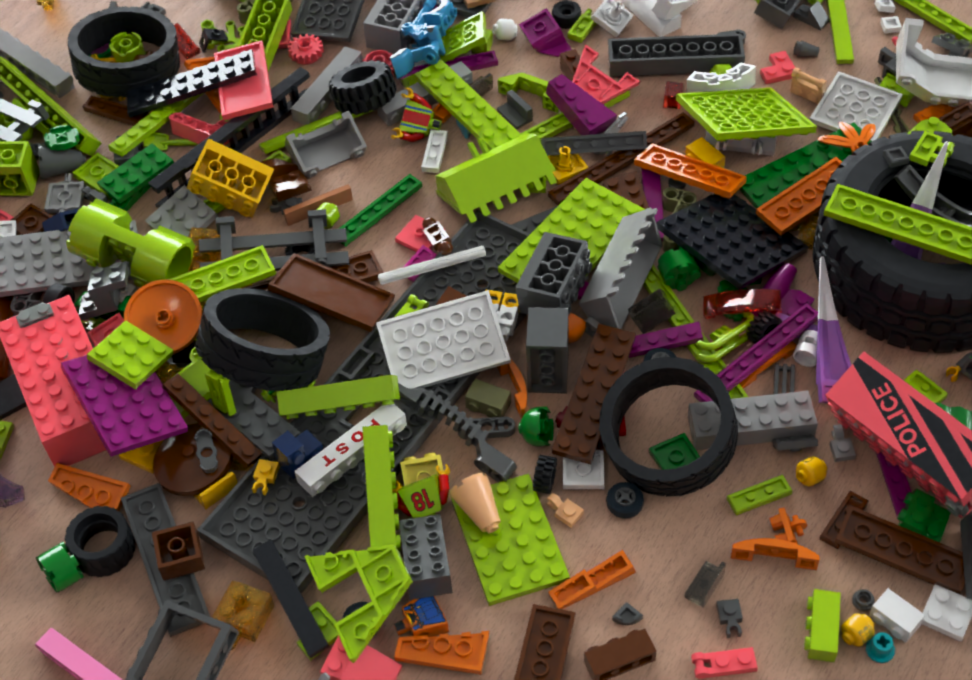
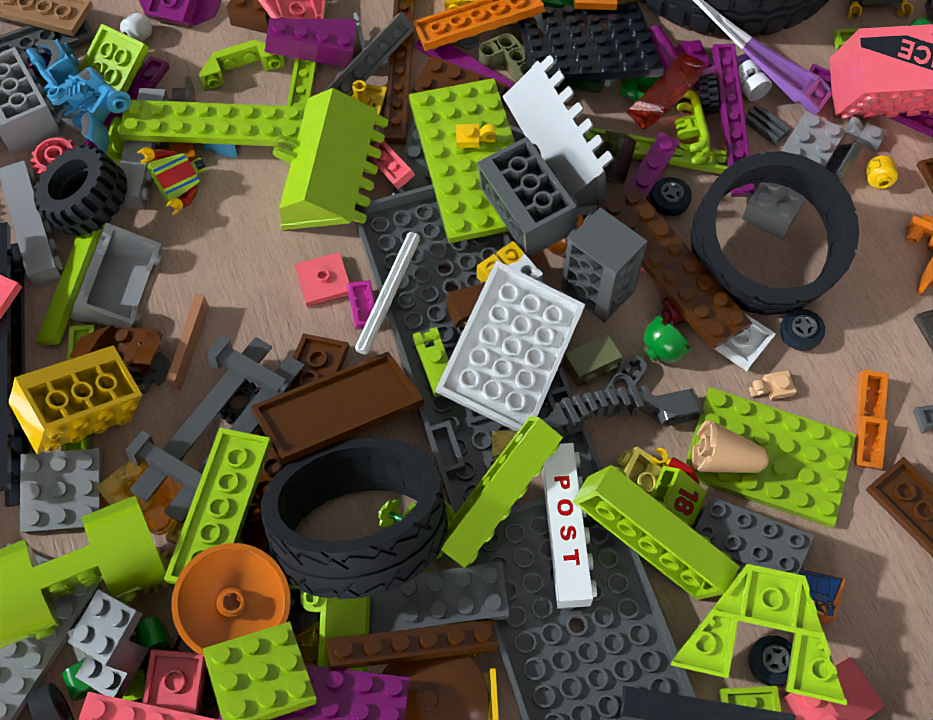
camera: 55 degrees left, 10 degrees up
(205, 441) = (431, 672): dark grey piece -> none
(220, 393) = (389, 610): lime plate -> none
(265, 473) = (523, 634): yellow plate -> none
(295, 451) = (533, 581): dark blue brick -> none
(331, 213) = (207, 338): lime head -> none
(380, 207) = (251, 287): green plate -> none
(434, 151) = (228, 192): white plate -> none
(437, 236) = (353, 262): reddish brown plate -> none
(445, 651) = (866, 602): orange wing -> none
(516, 110) = (249, 89): dark grey panel -> none
(519, 384) = (598, 321): orange slope -> none
(529, 207) = (392, 165): none -> coral plate
(544, 474) = (730, 372): black tyre -> none
(582, 224) = (470, 135): none -> yellow plate
(674, 452) = (782, 258): green tile -> none
(678, 269) = (590, 97): green brick -> none
(759, 495) = (872, 226): lime tile -> none

